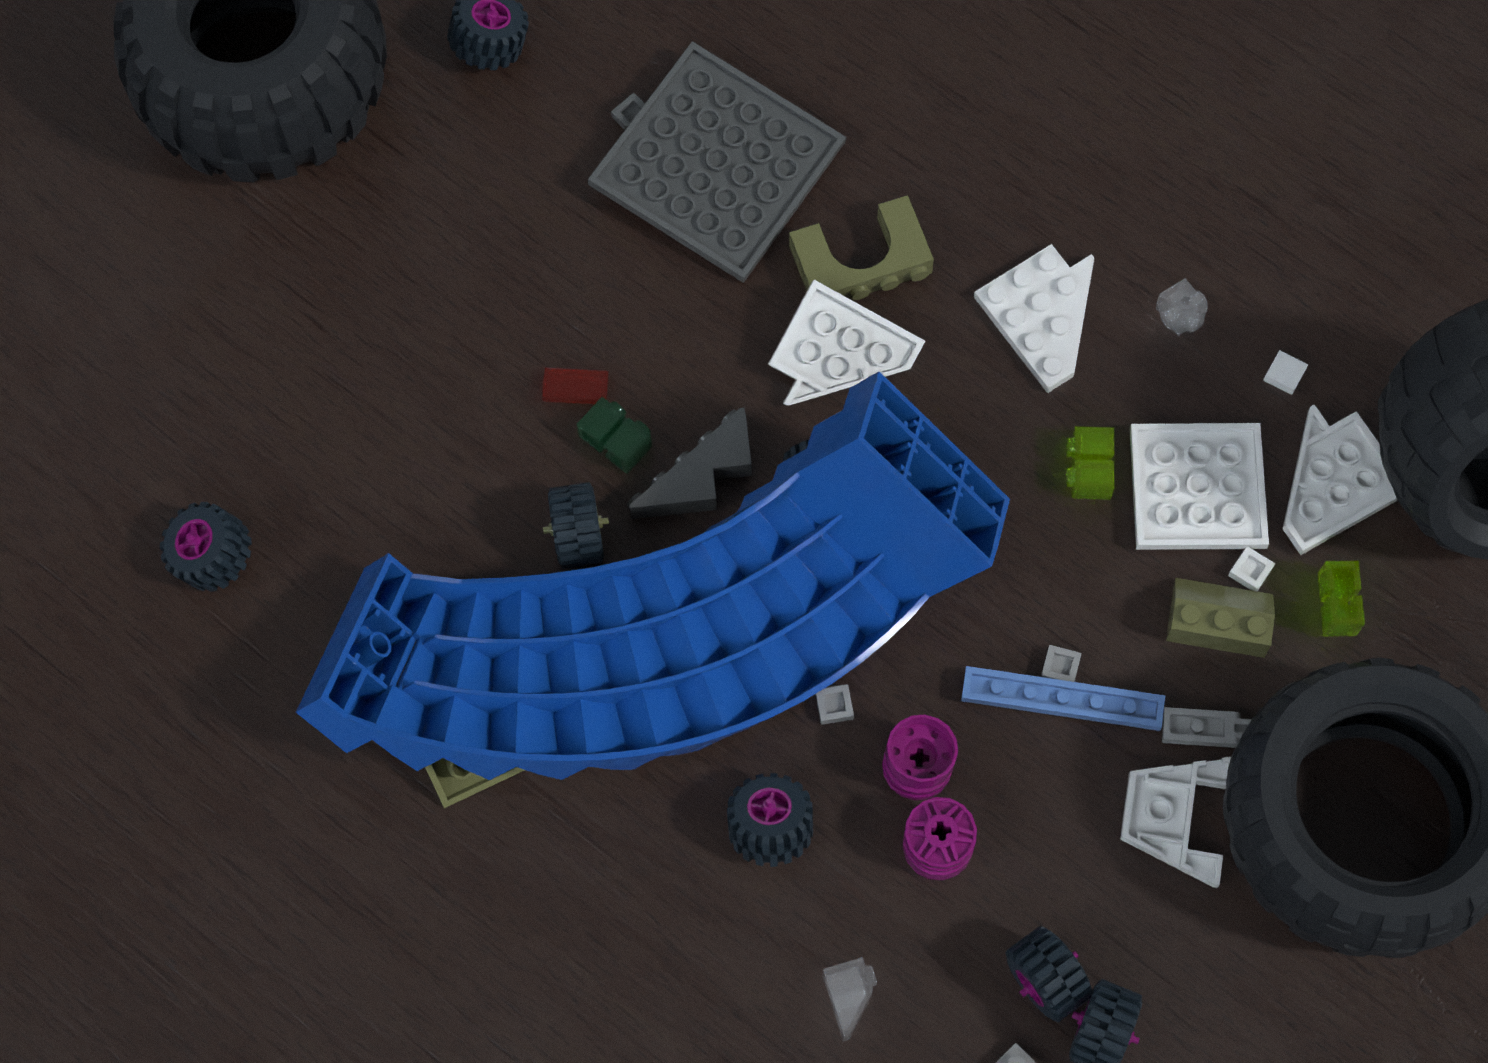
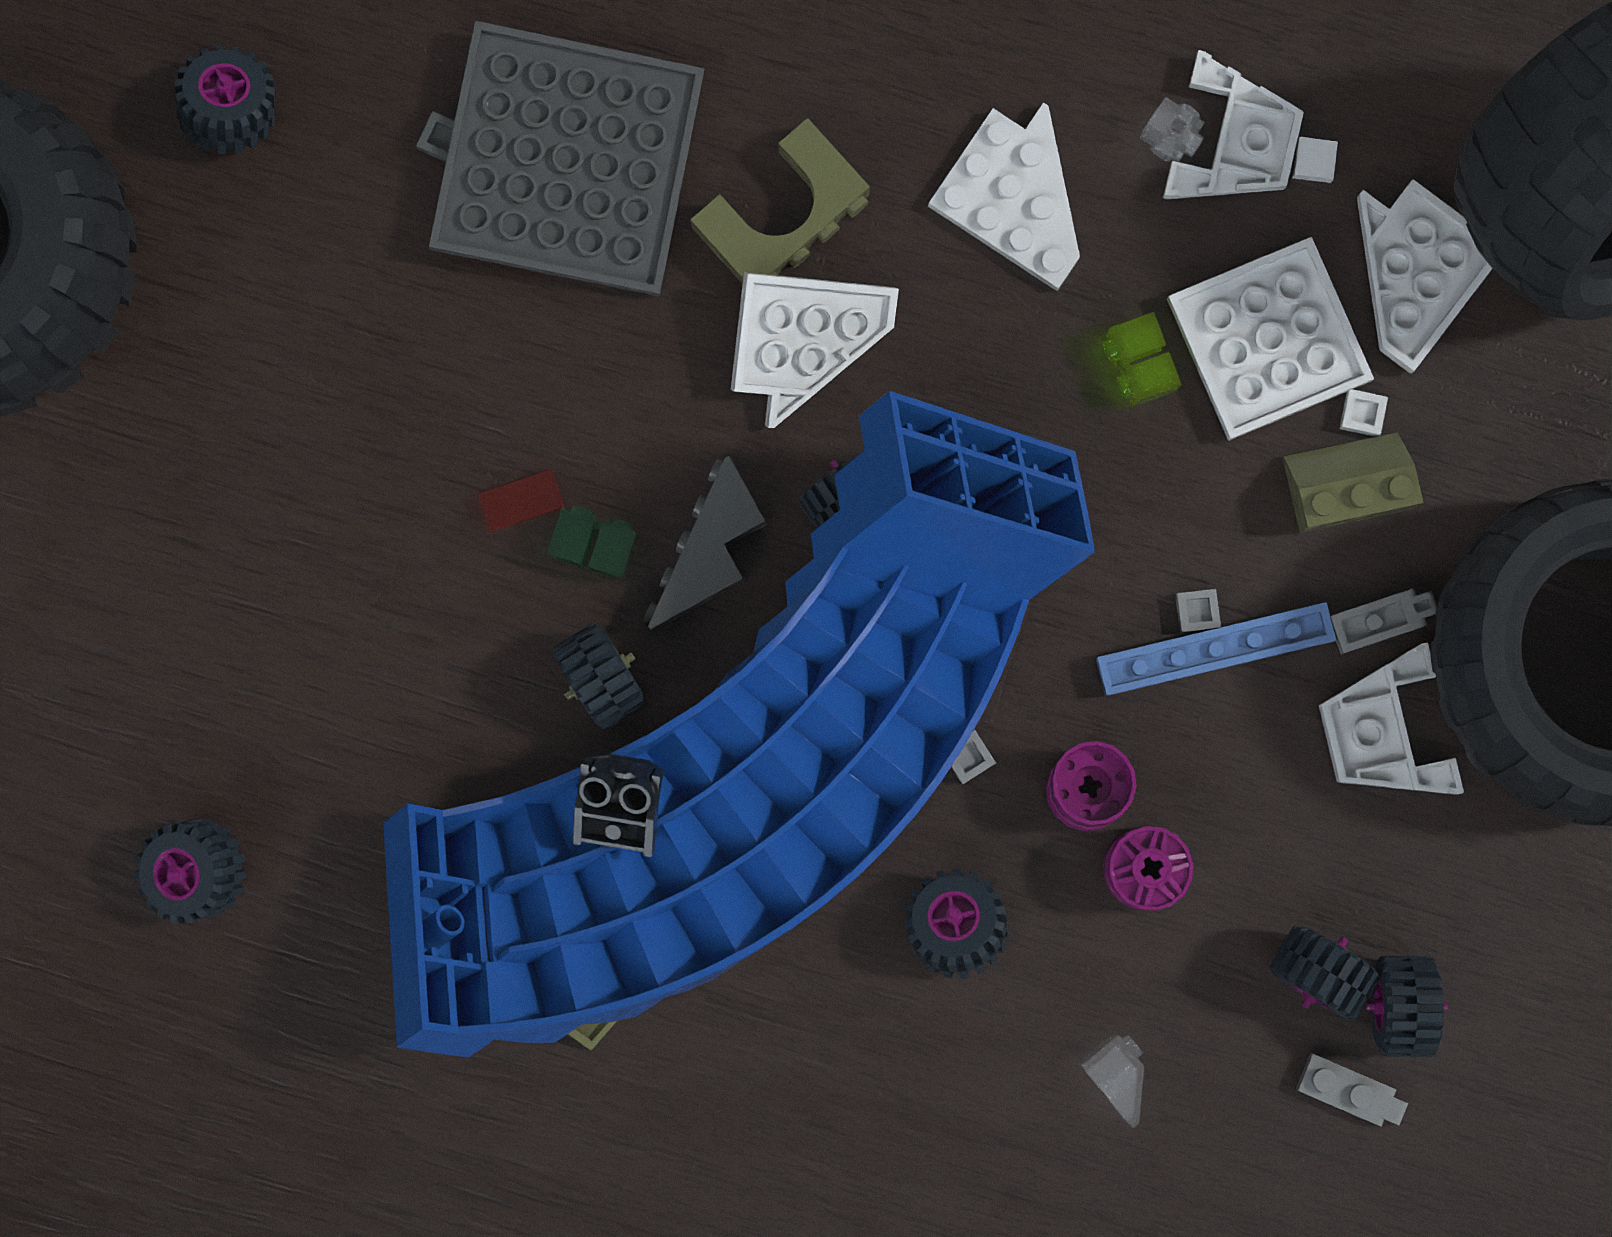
camera: 25 degrees left, 15 degrees up
(545, 608) = (618, 803): none -> black slope
(1242, 340) = (1253, 141): none -> white wing
(1339, 584) = (1464, 400): clear neon green piece -> none

